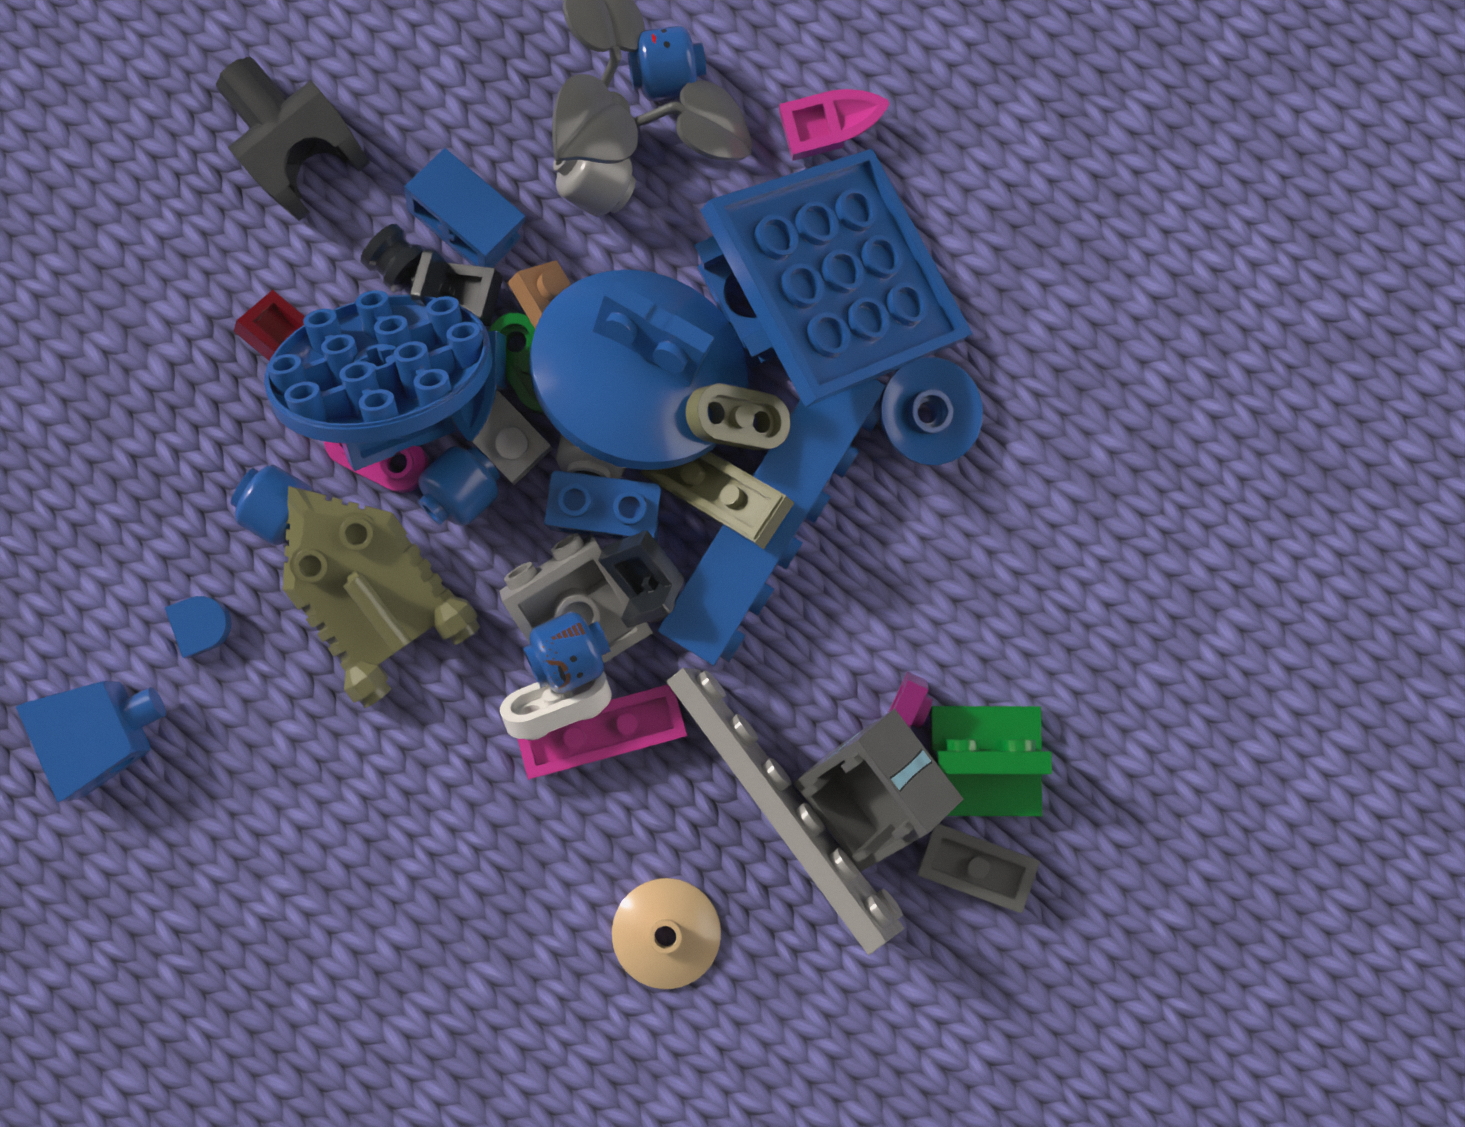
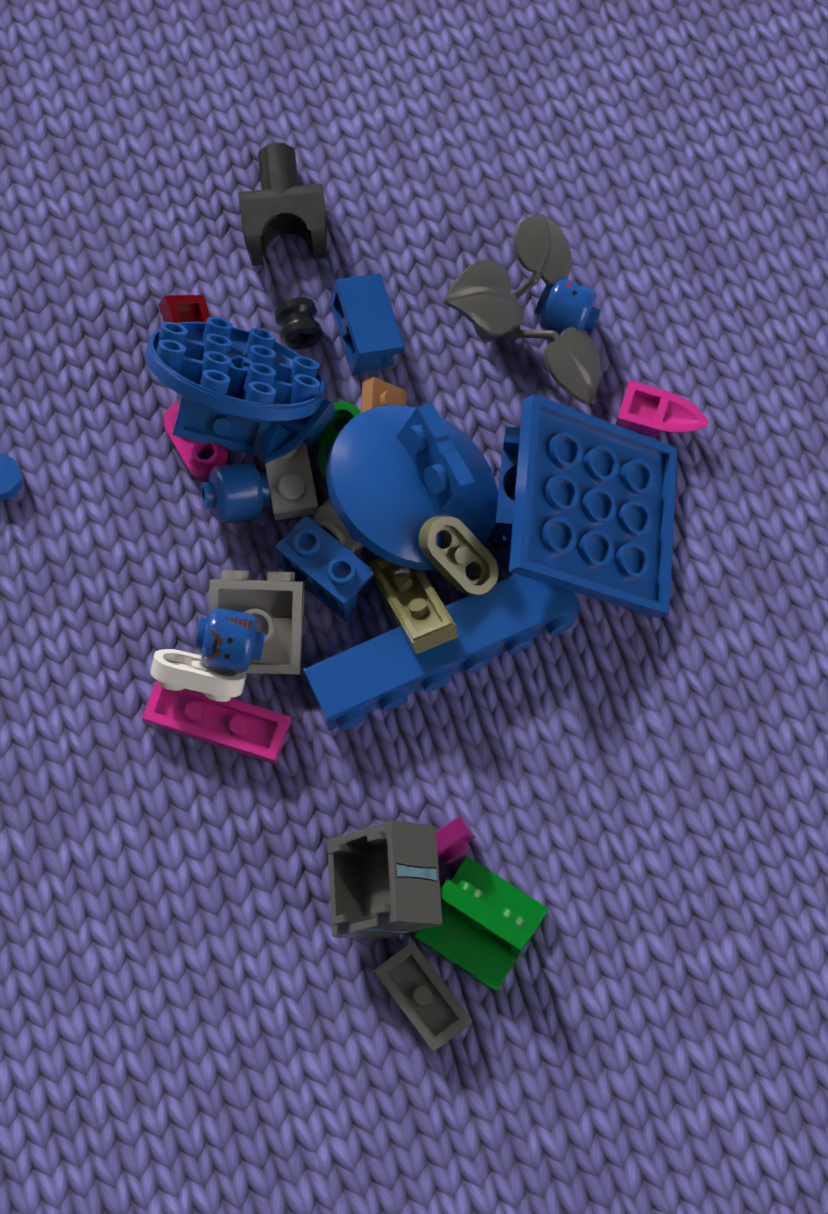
camera: 30 degrees right, 15 degrees down
(263, 502) = (103, 428): blue head -> none
(364, 587) = (124, 518): olive shield -> none
(471, 285) = (336, 370): black bracket -> none
(595, 186) = (468, 351): light grey head -> none
(644, 576) = (319, 624): black bracket -> none
(673, 905) = (176, 916): tan dish -> none
(867, 913) = (313, 942): light grey wing -> none
(953, 406) = (623, 642): blue dish -> none

